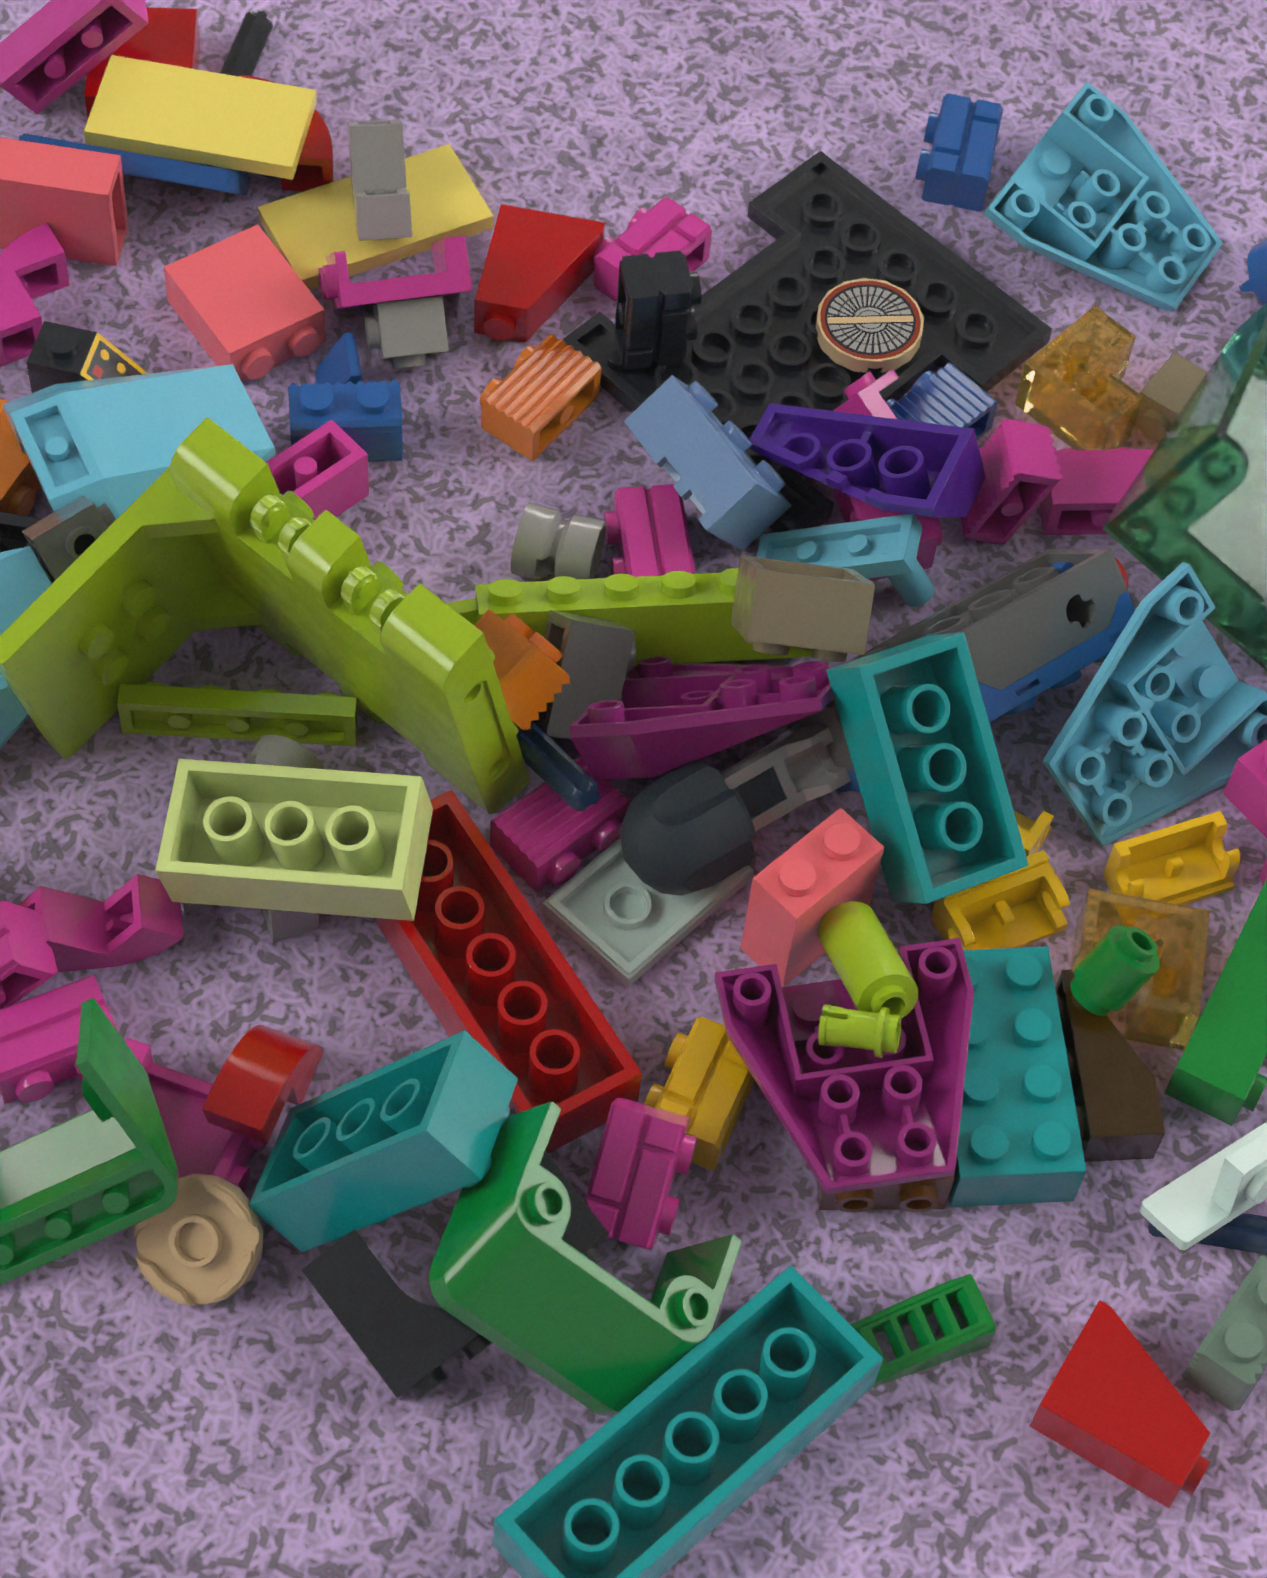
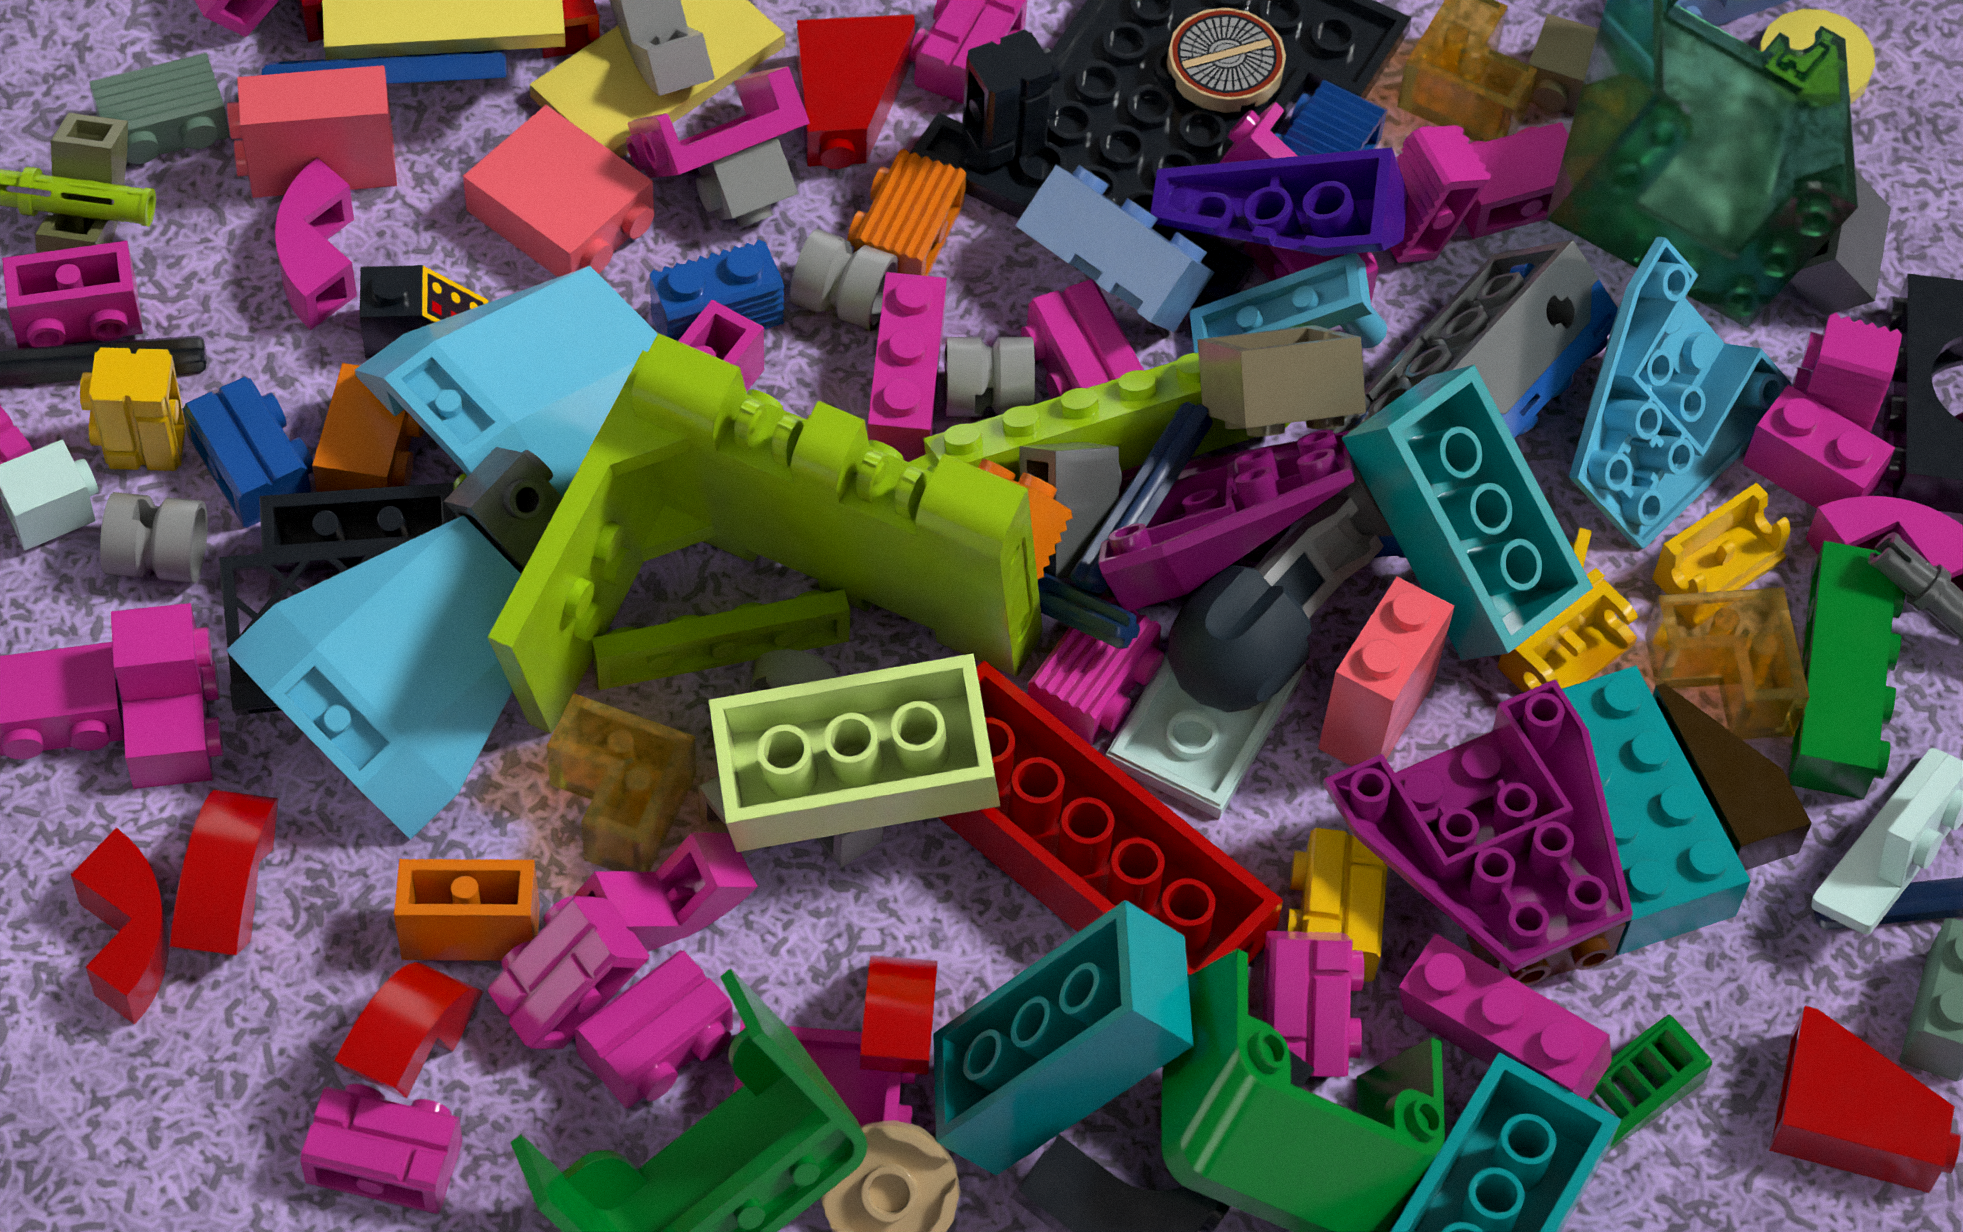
camera: 15 degrees left, 0 degrees up
(110, 814) = (631, 773): none -> clear yellow brick
(340, 363) = (686, 237): blue slope -> none
(457, 430) = (834, 276): none -> light grey wheel
(487, 519) = (907, 362): none -> dark pink brick
(662, 669) = (1146, 488): none -> dark blue axle
(812, 1238) = (1495, 1013): none -> dark pink brick
(860, 1029) = (1492, 797): lime pin -> none
(866, 959) = (1472, 728): lime brick -> none
(1115, 970) = (1714, 671): green brick -> none

